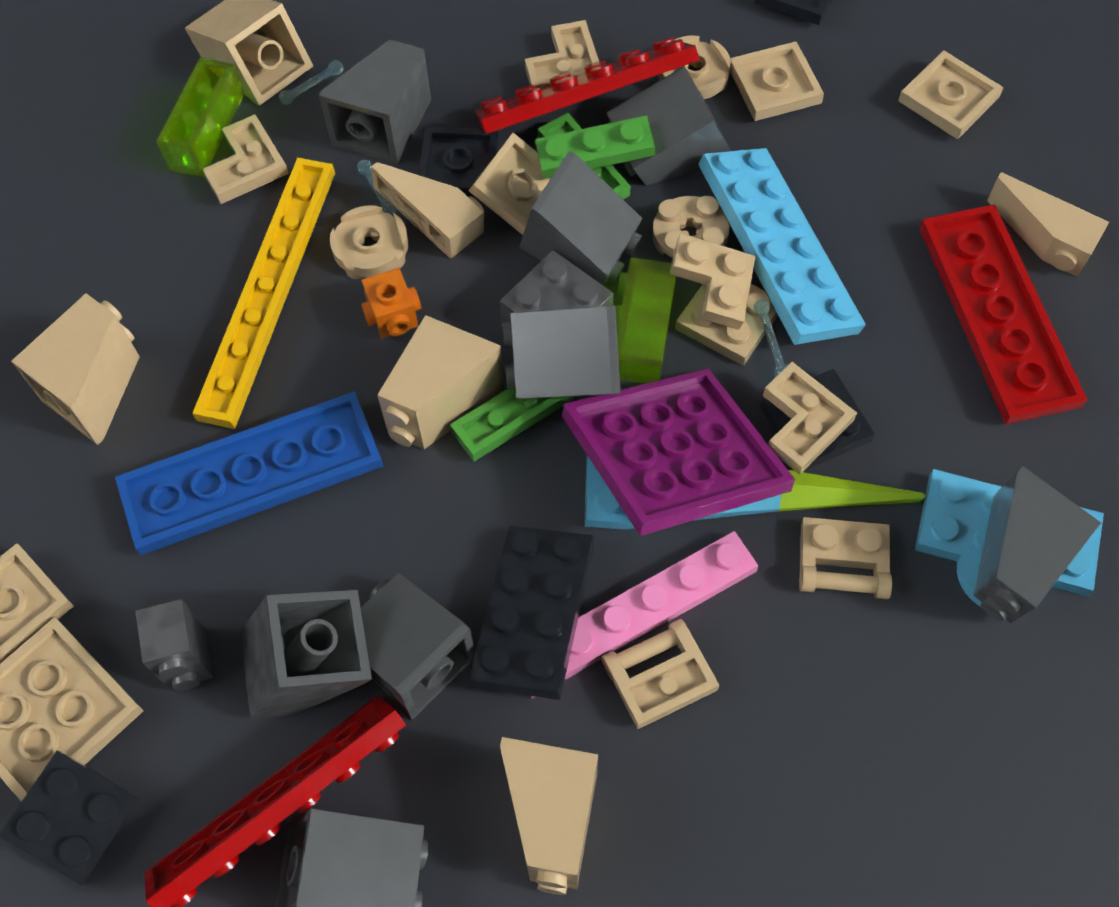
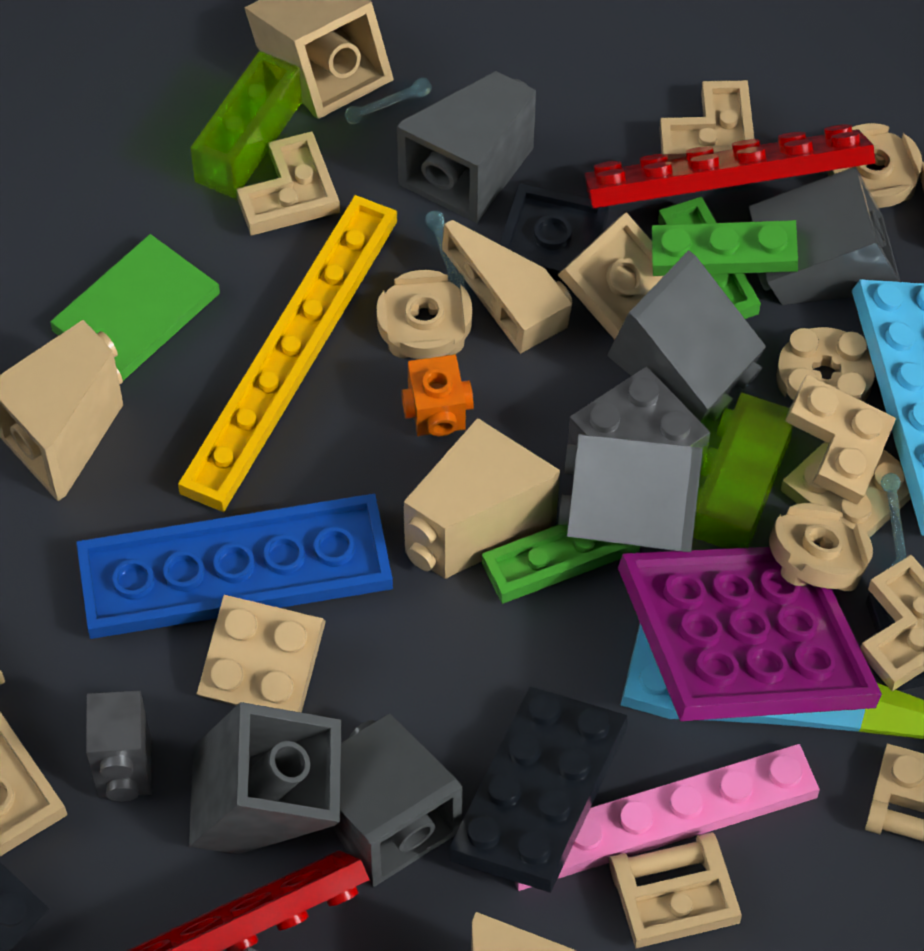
camera: 10 degrees right, 5 degrees down
(140, 272) = (141, 302): none -> bright green tile
(284, 544) = (260, 655): none -> tan plate
(729, 380) = (835, 564): none -> tan plate

